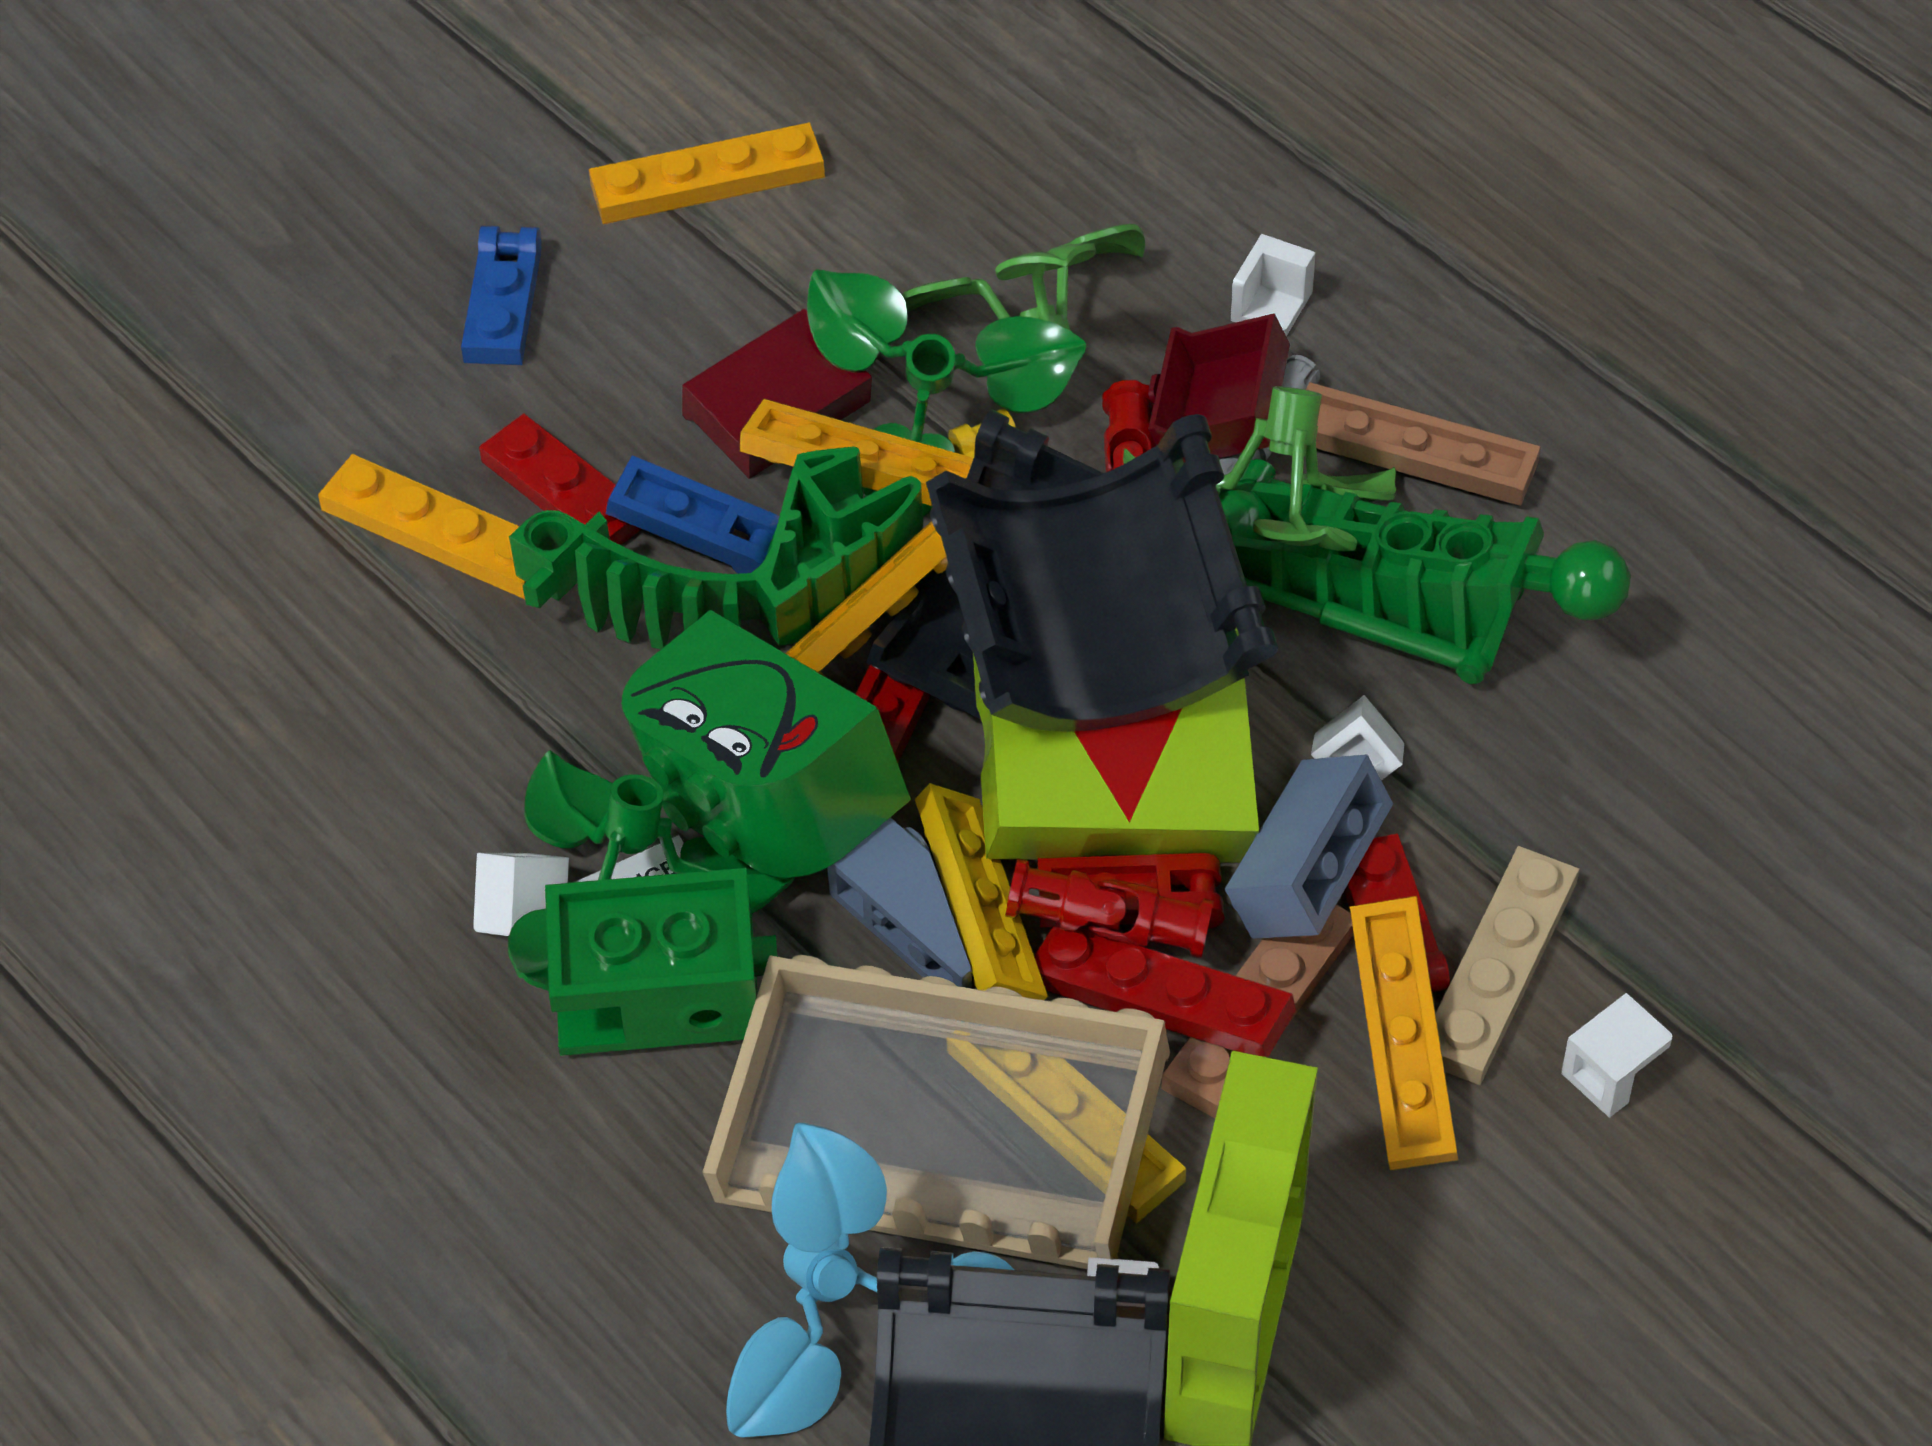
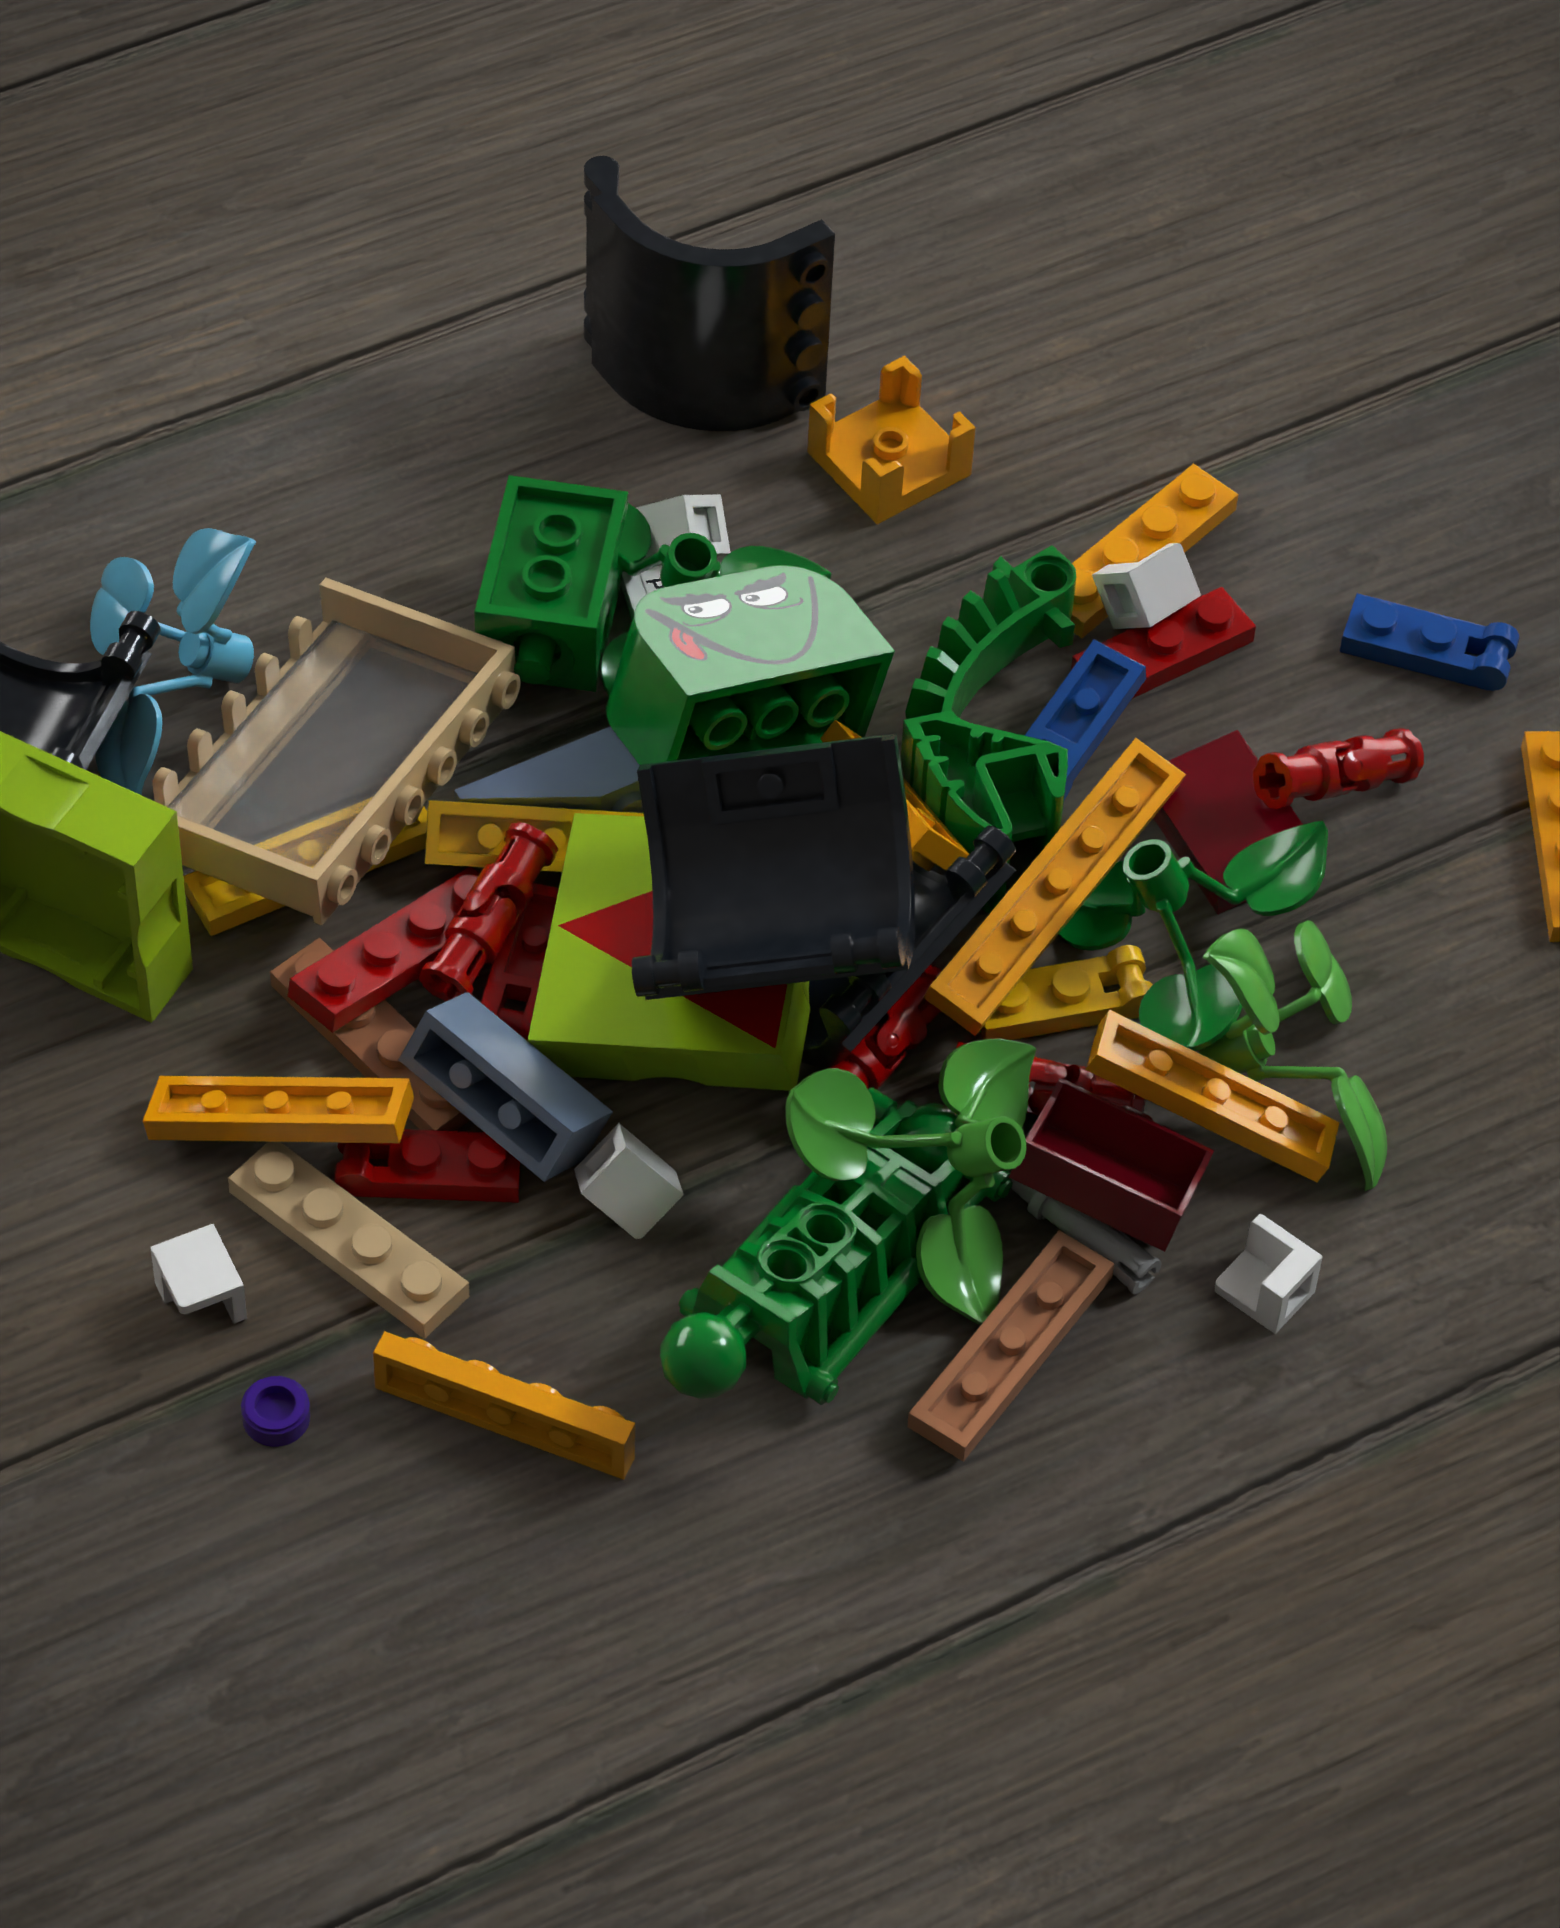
camera: 100 degrees right, 0 degrees up
(272, 923) = (700, 329): none -> black hinge
(355, 741) = (891, 448): none -> light orange panel
(516, 485) = (1148, 589): none -> white panel
(709, 305) = (1337, 768): none -> red piece
(1118, 334) = (1213, 1096): none -> light orange plate
(1637, 801) = (504, 1404): none -> light orange plate
(1713, 969) = (275, 1411): none -> dark purple tile

